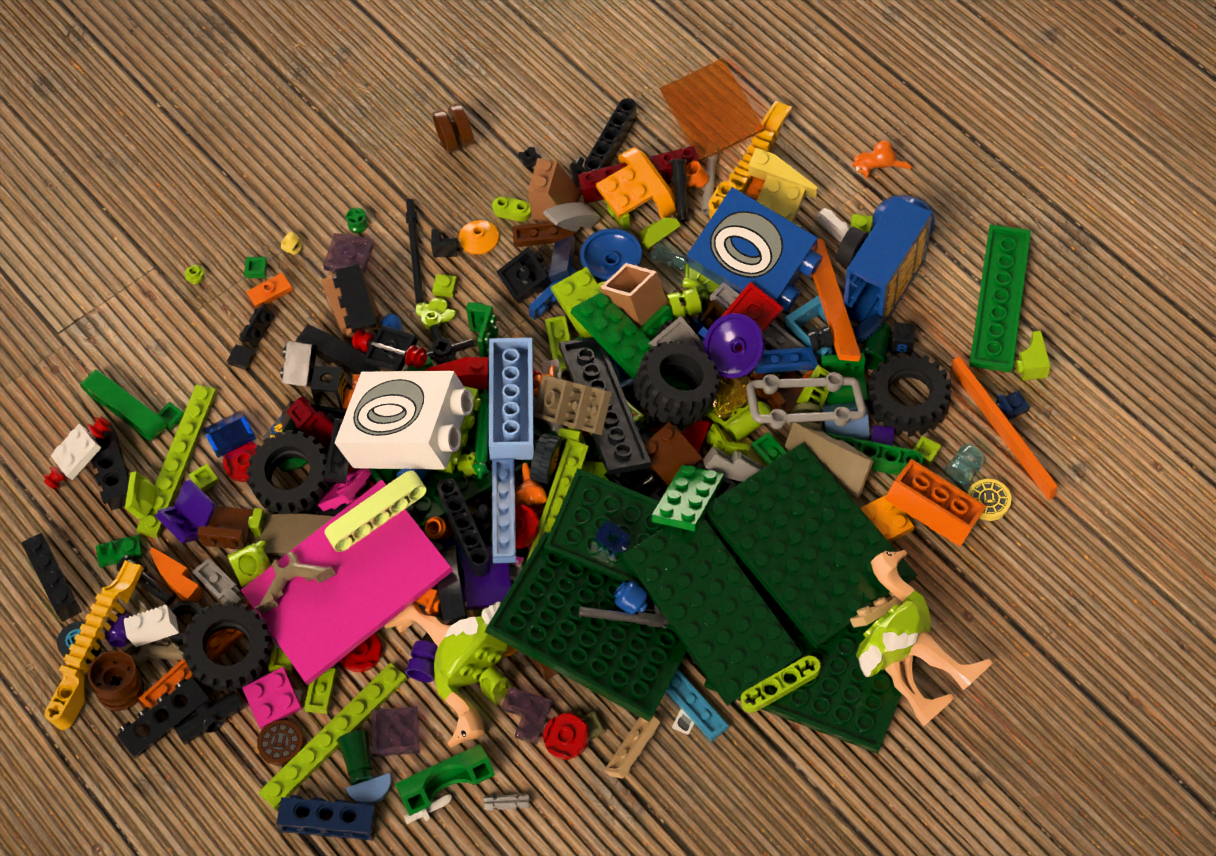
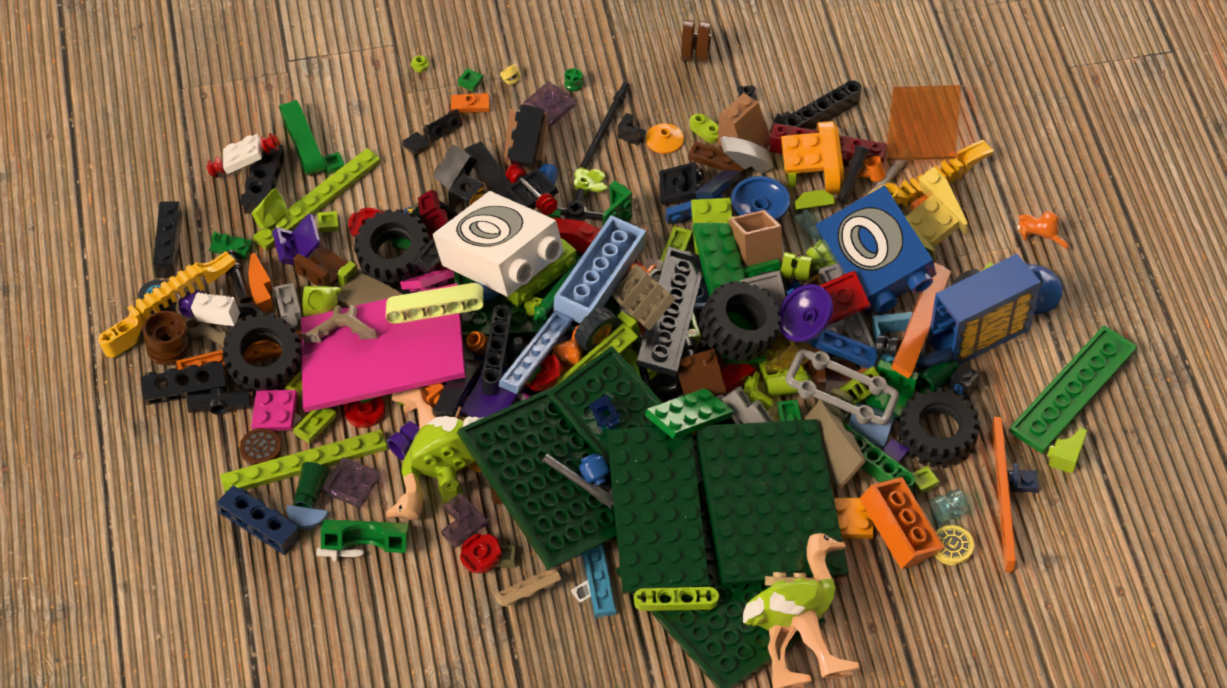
camera: 25 degrees right, 5 degrees down
(229, 434) = (368, 197): clear blue slope -> none
(444, 285) = (611, 163): lime plate -> none
(506, 802) = (403, 578): light grey axle -> none
(832, 224) = (965, 258): white plate -> none

